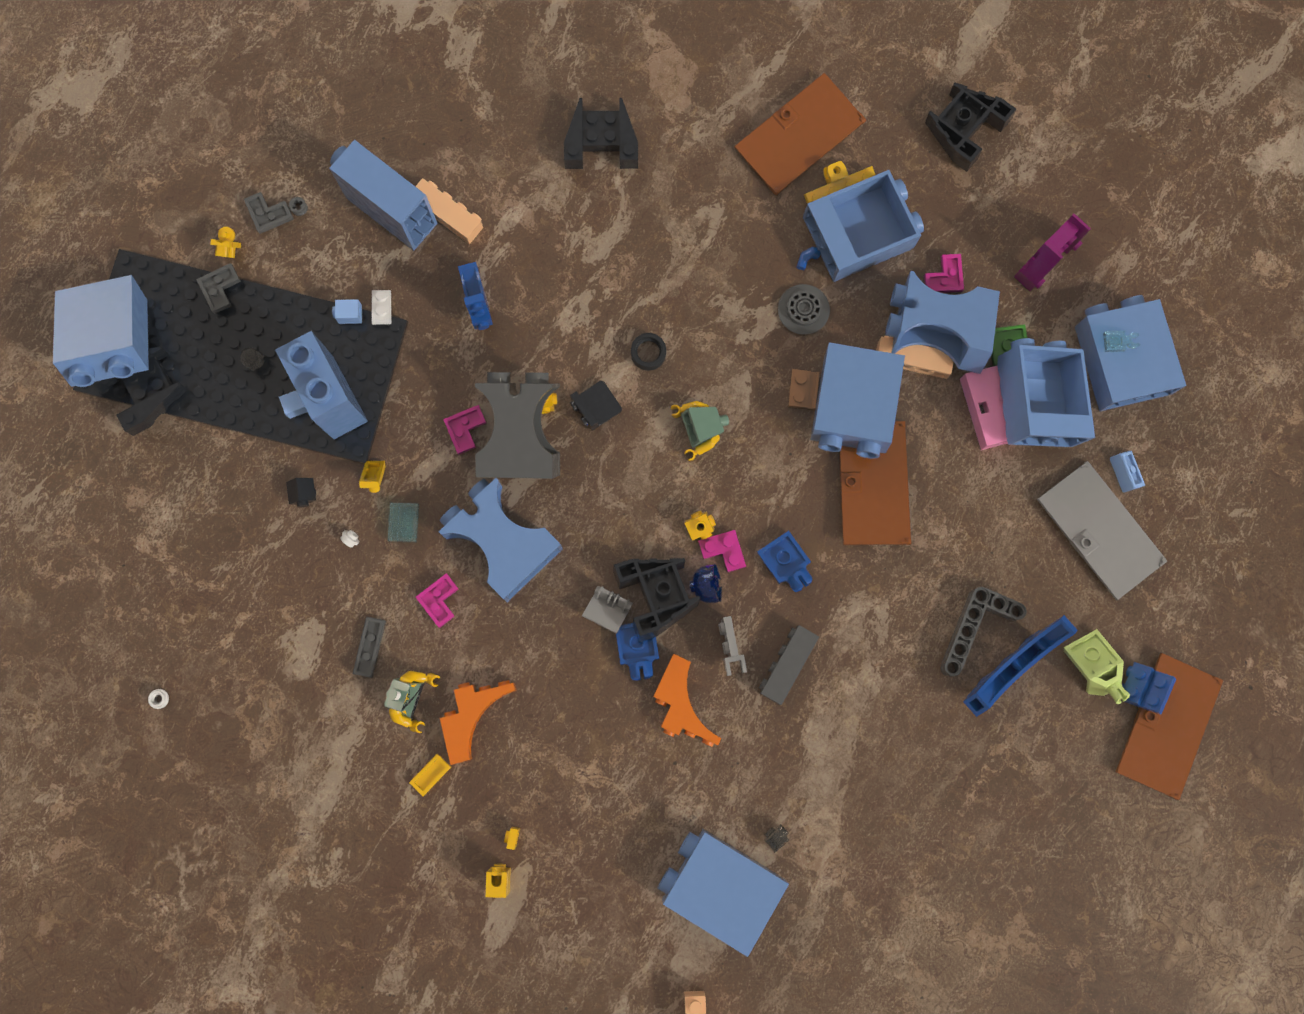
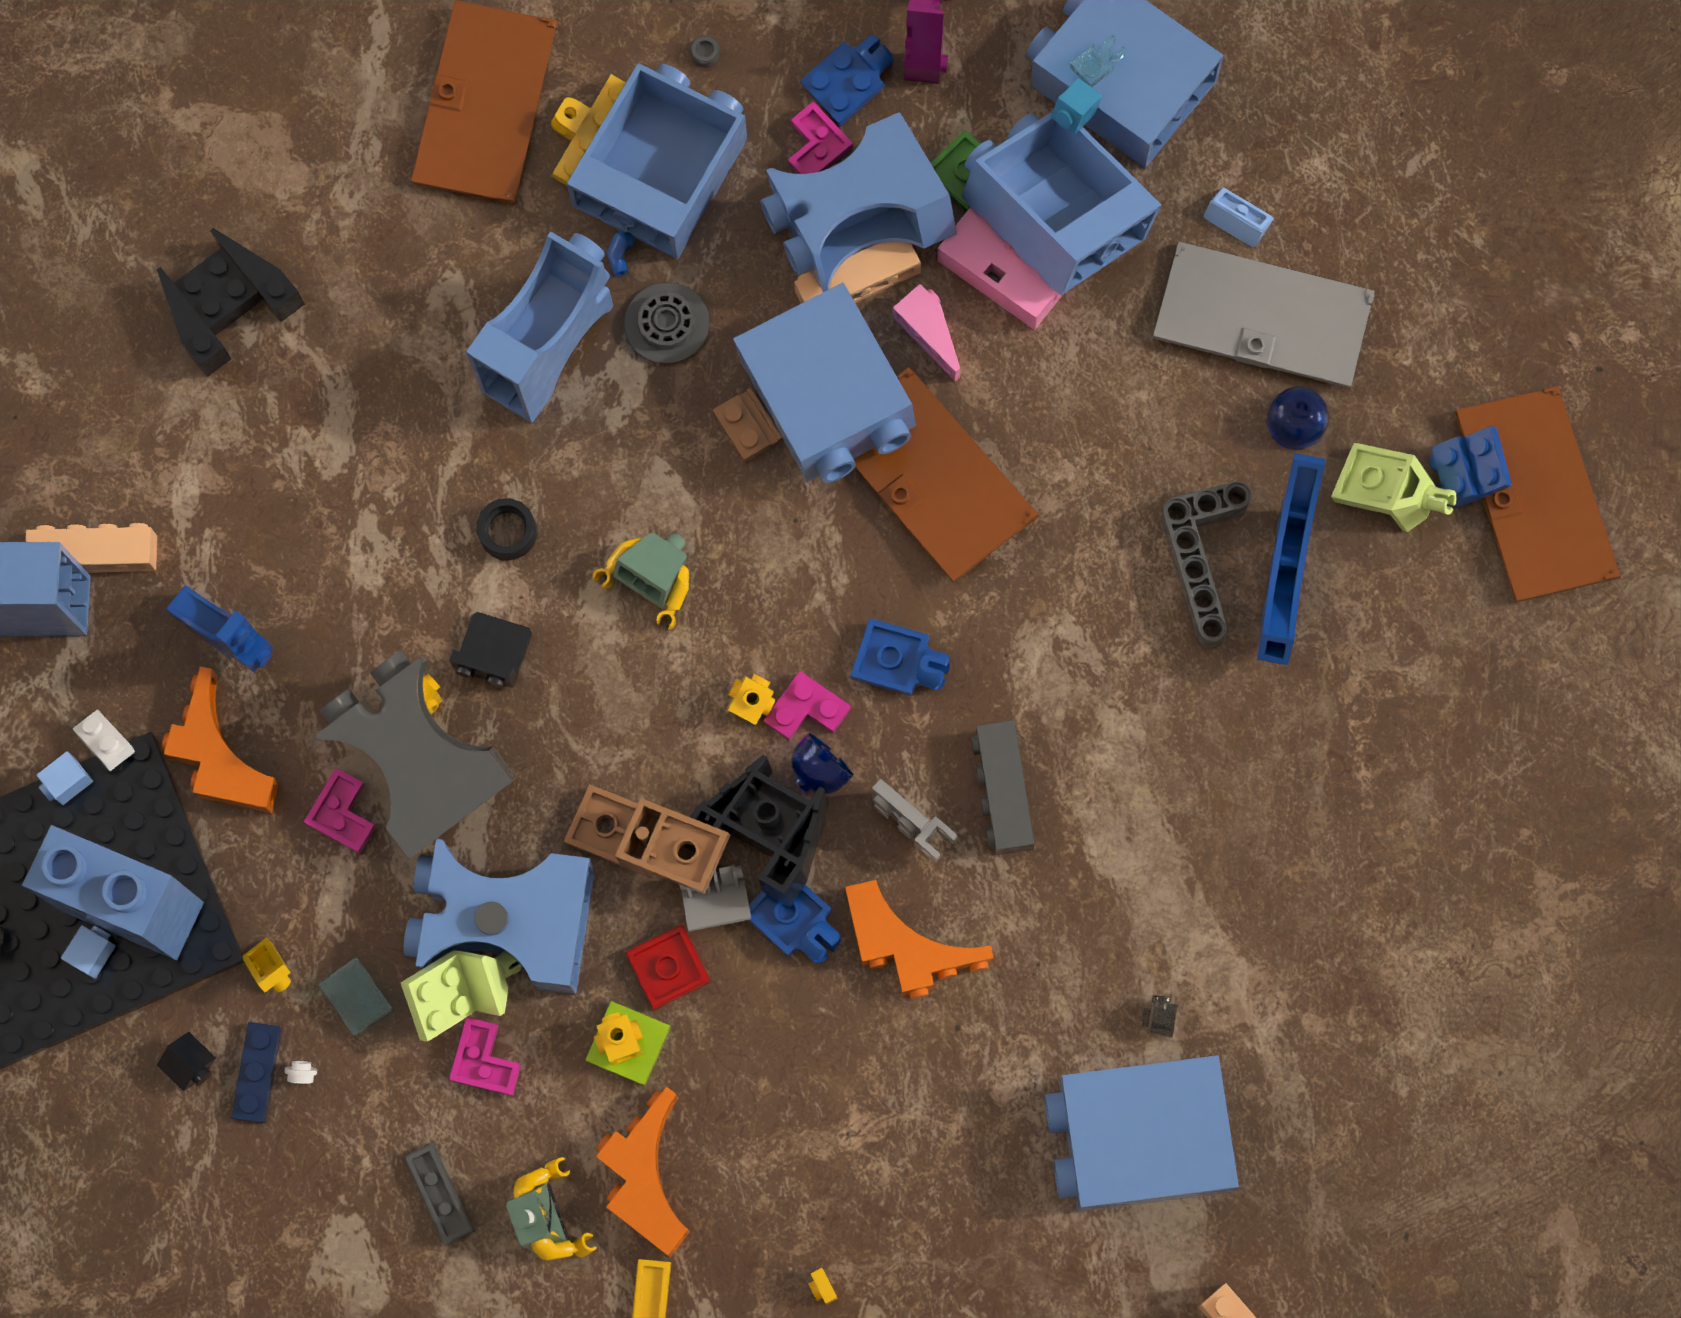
camera: 30 degrees left, 5 degrees down
(330, 521) = (256, 1072): none -> dark blue plate
(426, 344) = (201, 744): none -> orange arch
(450, 556) = (457, 988): none -> yellowish green plate
(491, 537) = (491, 918): none -> dark grey tile
(503, 647) = (627, 1046): none -> yellow brick
(512, 645) = (640, 1067): none -> lime tile
(560, 623) = (668, 967): none -> red tile
(597, 555) = (647, 838): none -> medium nougat bracket
(729, 268) = (530, 341): none -> medium blue brick
(926, 189) = (705, 51): none -> dark grey tile
(930, 404) = (925, 322): none -> bright pink slope
(987, 255) = (848, 77): none -> blue plate
(1078, 594) = (1297, 418): none -> clear blue cylinder
(1091, 355) = (1076, 106): none -> dark azure brick

